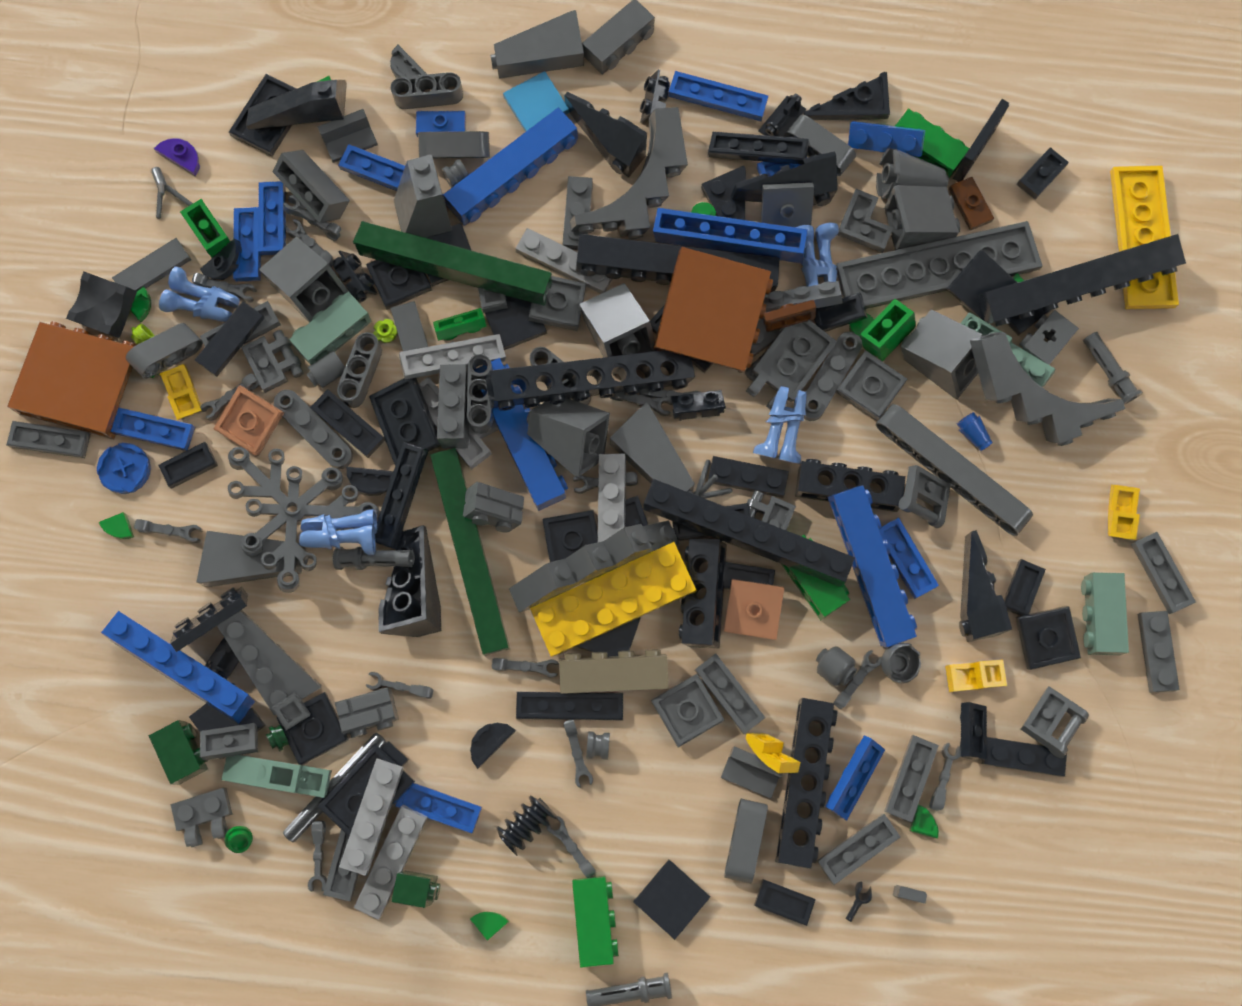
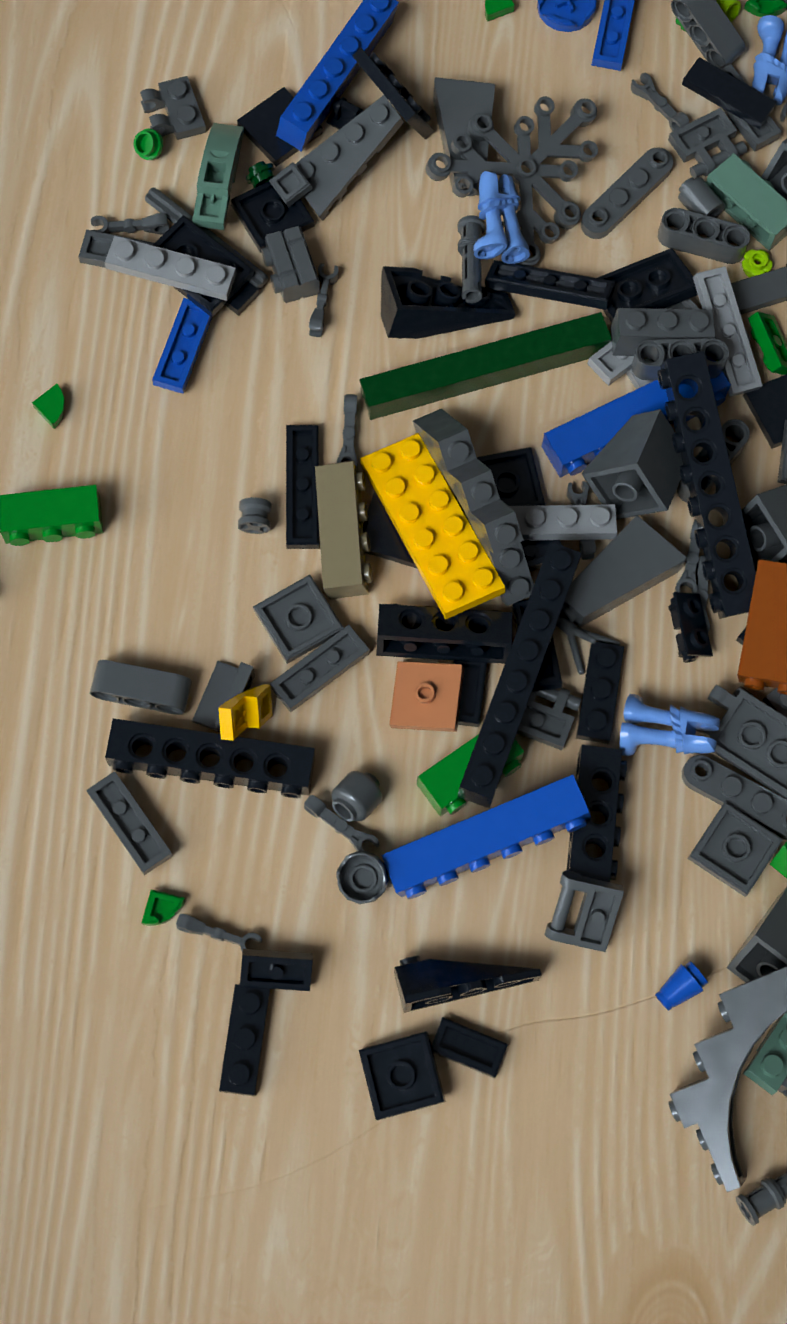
camera: 85 degrees right, 5 degrees down
(178, 752) = (243, 78): dark green brick -> none
(181, 391) = (660, 55): yellow slope -> none
(185, 532) = (494, 68): dark grey piece -> none
(188, 465) = (574, 67): black tile -> none
(228, 741) = (255, 123): dark grey plate -> none
(248, 420) = (631, 123): nougat plate -> none
(347, 423) = (635, 227): black plate -> none
(369, 481) = (566, 252): black plate -> none
(390, 861) = (121, 297): light grey plate -> none
(415, 889) = (89, 318): dark green brick -> none
(488, 741) = (259, 396): black plate -> none
(493, 507) = (539, 384): dark grey brick -> none
(525, 824) = (161, 437): black piece -> none
(581, 768) = (273, 487): dark grey piece -> none
(585, 866) = (112, 507): dark grey piece -> none
(671, 899) = (74, 605): black tile -> none
(784, 902) = (67, 736): black tile -> none
(855, 777) = (216, 819): blue plate -> none
(861, 898) = (70, 824): black hand -> none
(908, 559) = (501, 890): blue plate -> none
(910, 894) = (73, 883): dark grey tile -> none
(911, 778) = (216, 890): dark grey plate -> none
(954, 469) = (624, 956): dark grey beam -> none
(976, 675) = (349, 979): yellow slope -> none
(1047, 716) = (298, 1068): dark grey plate -> none
(1105, 614) = (436, 1153): sand green brick -> none
(1122, 512) = (581, 1191): yellow slope -> none
(1158, 651) = (388, 1231): dark grey plate -> none
(1163, 573) = (496, 1242): dark grey plate -> none

